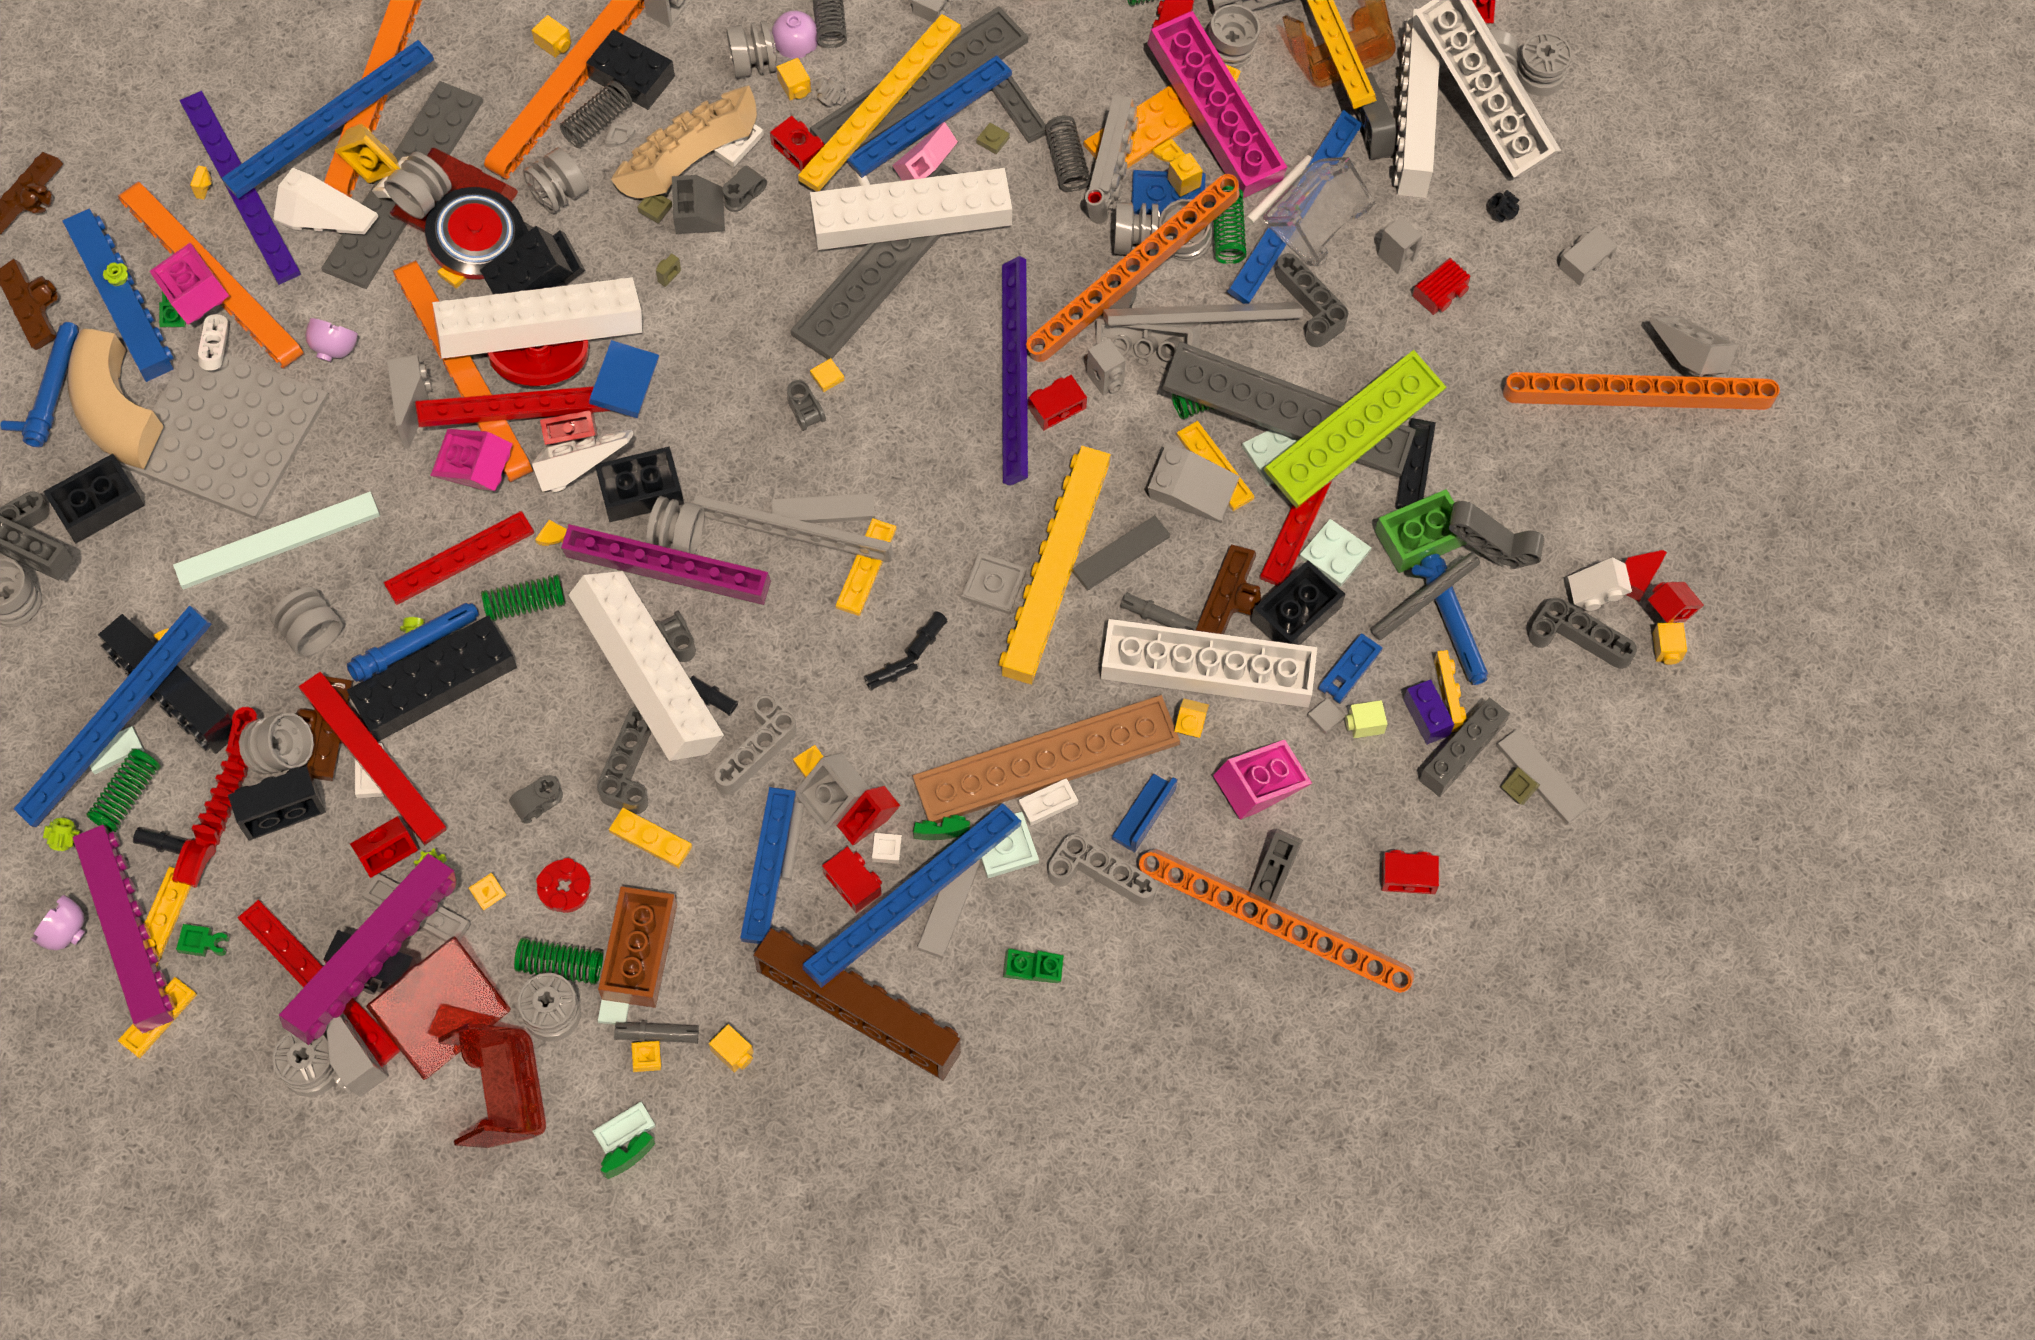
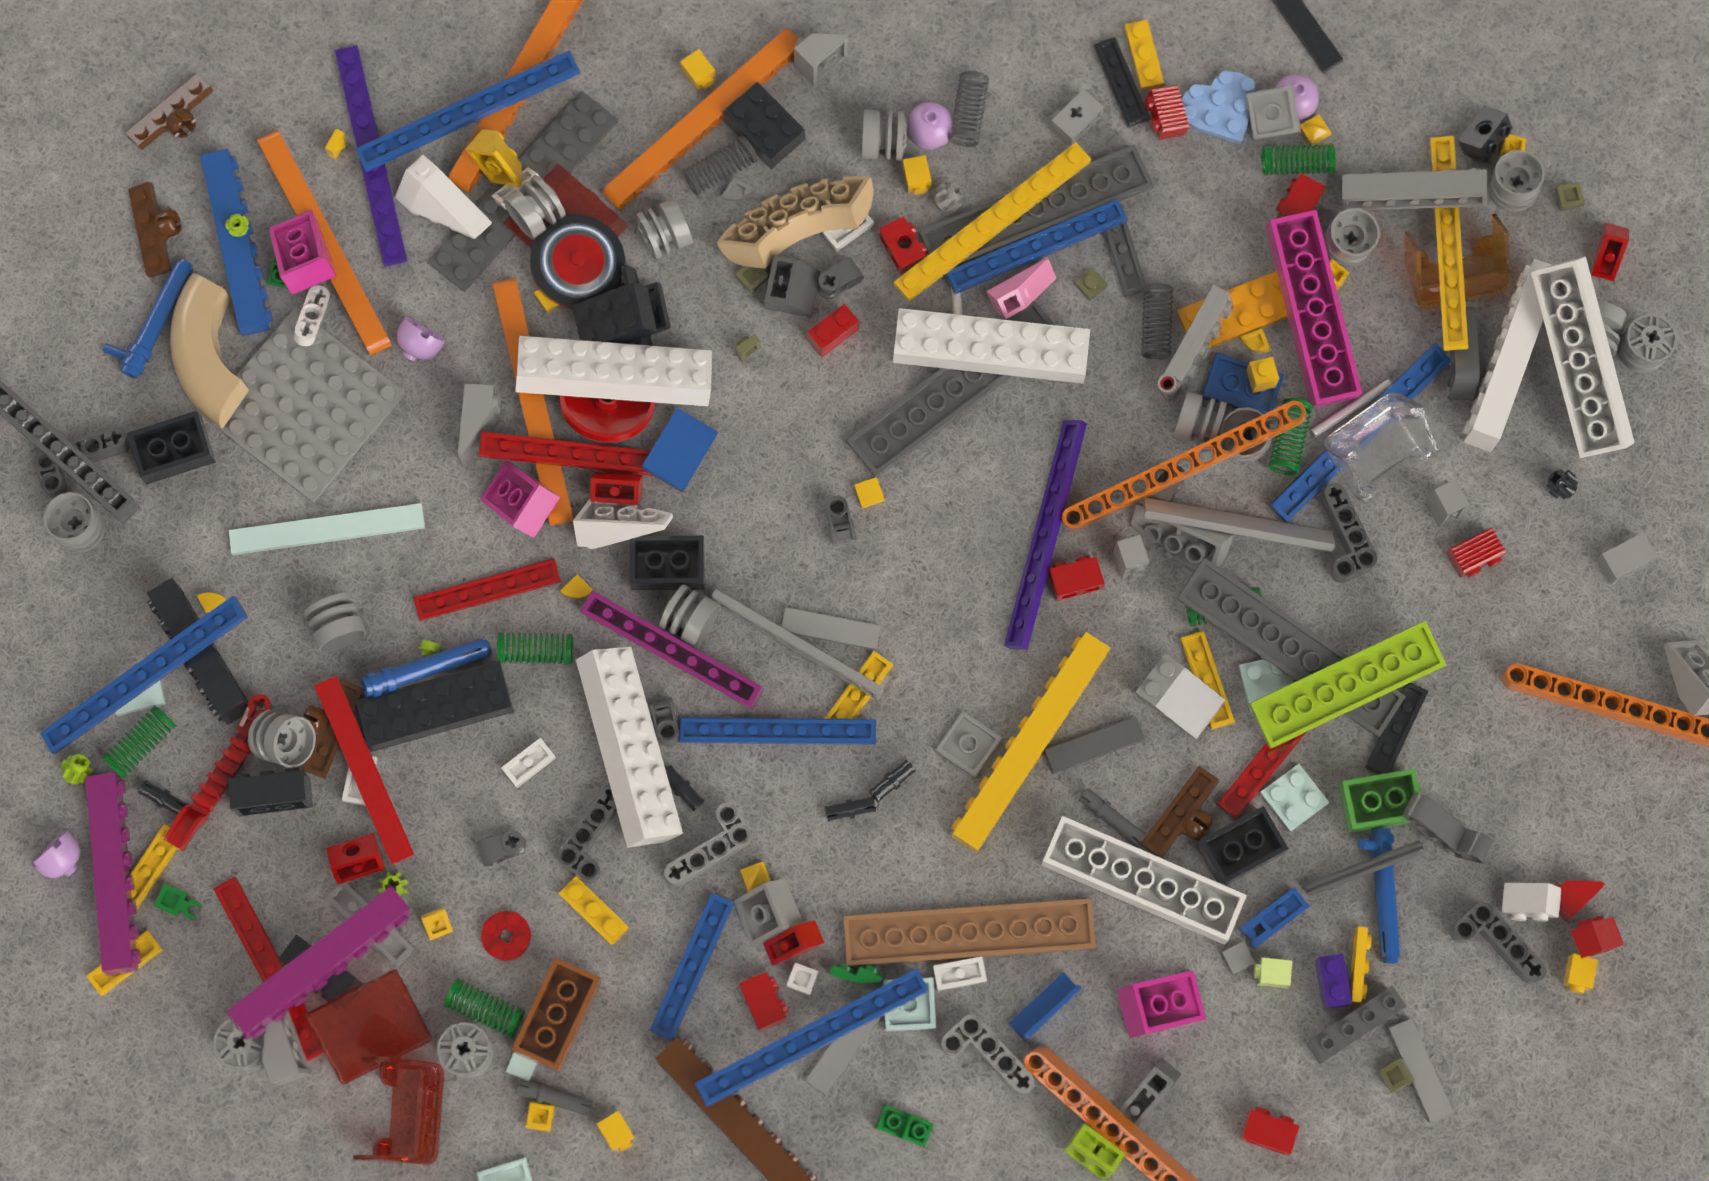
camera: 15 degrees right, 10 degrees up
(544, 710) = (528, 762): none -> white plate
(749, 234) = (833, 330): none -> red brick
(792, 842) = (719, 948): light grey bar -> none
(795, 616) = (777, 731): none -> blue tile
(1191, 718) = (1112, 929): yellow brick -> none
(1238, 937) = (1094, 1152): none -> lime brick

